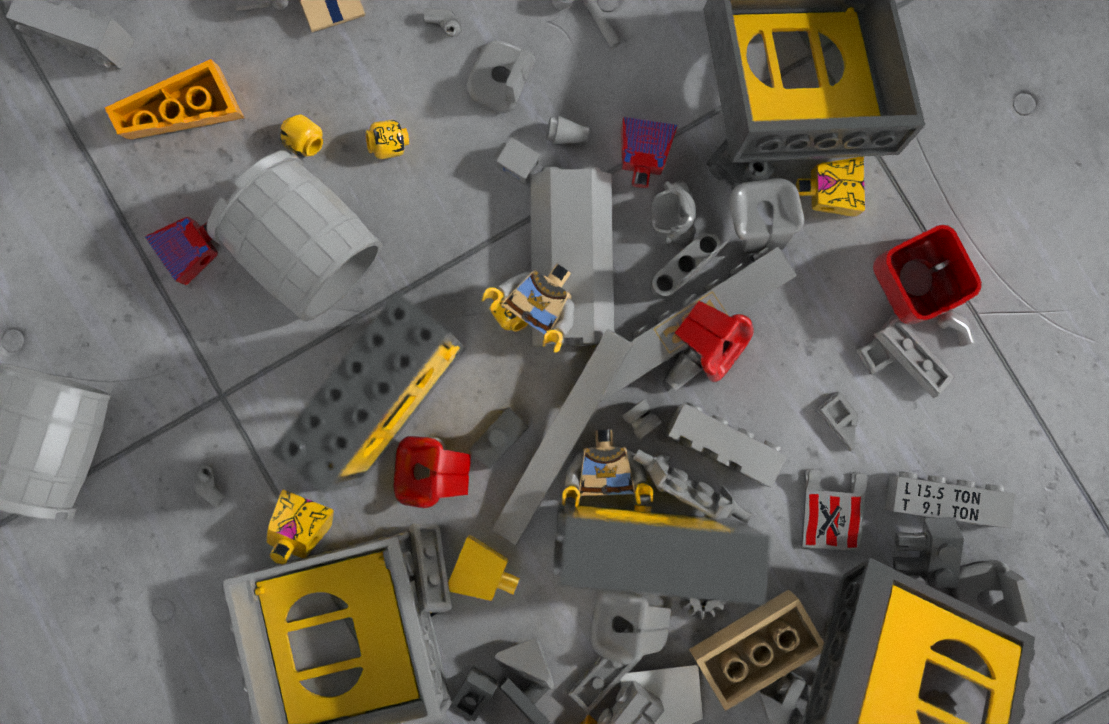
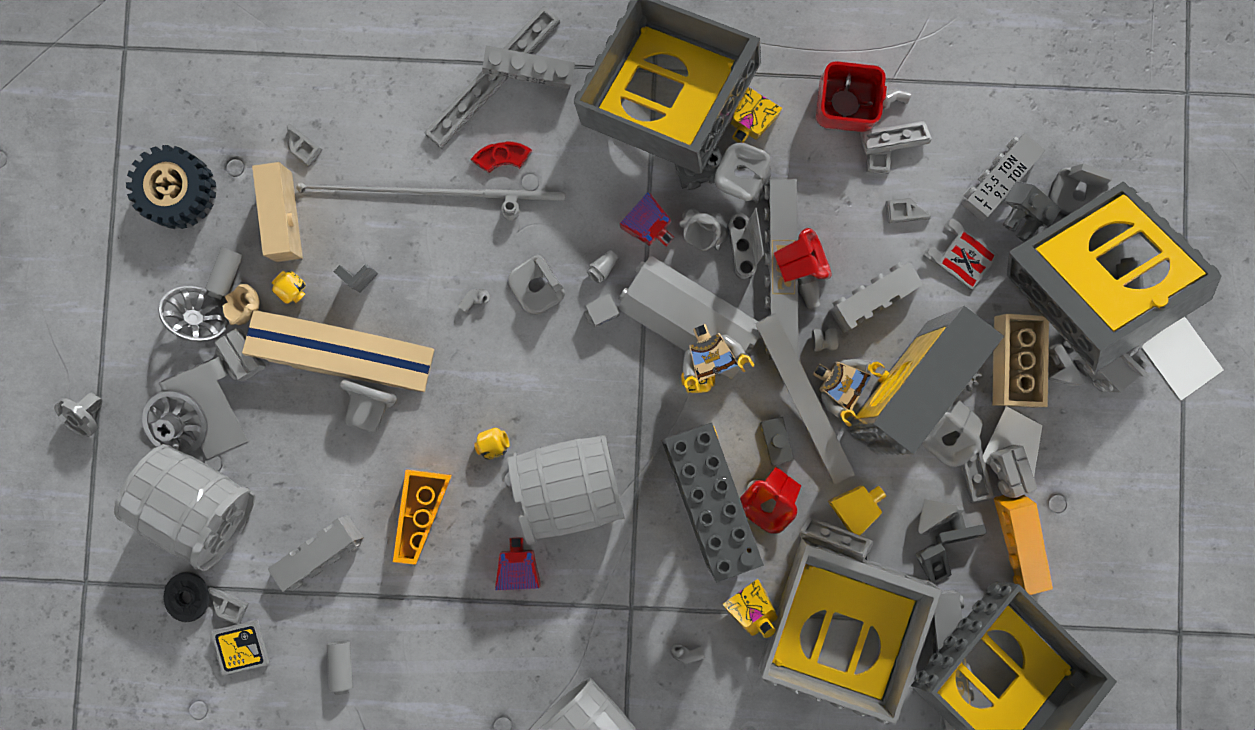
camera: 55 degrees left, 0 degrees up
(386, 139) = (531, 388): yellow head -> none
(690, 492) = (899, 333): light grey plate -> none

